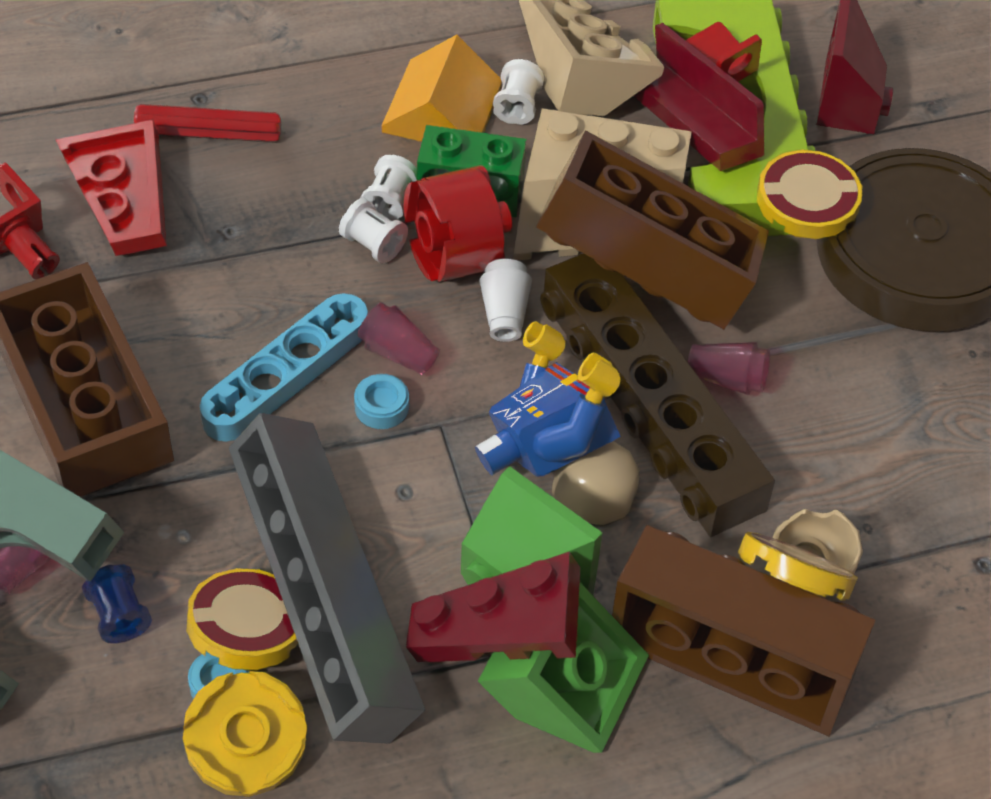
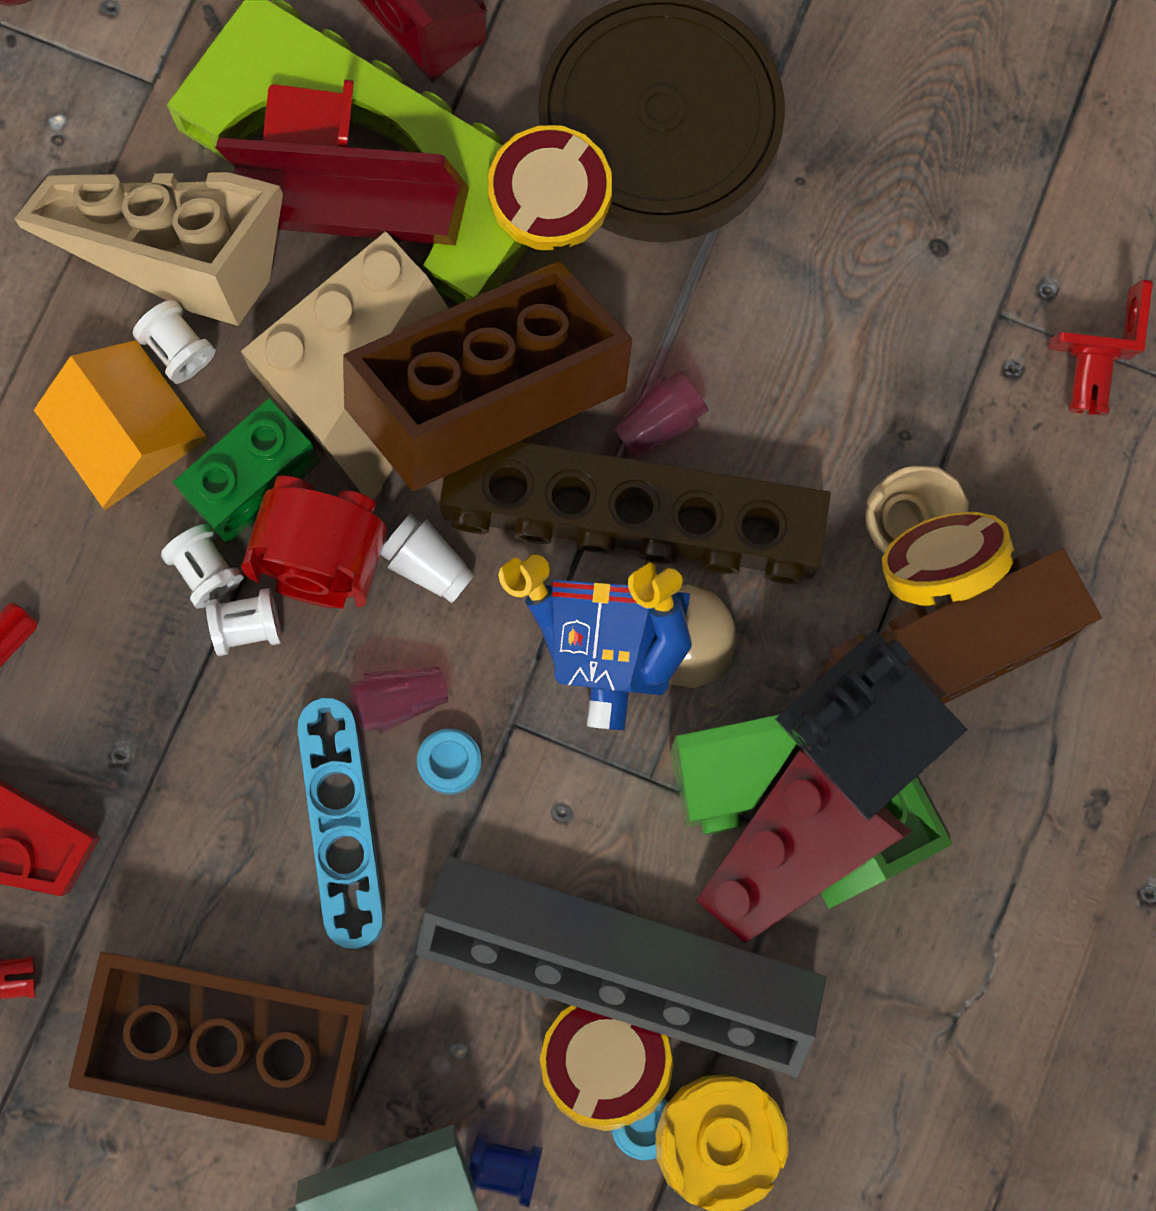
camera: 50 degrees left, 25 degrees up
(626, 570) = (871, 724): none -> black hinge

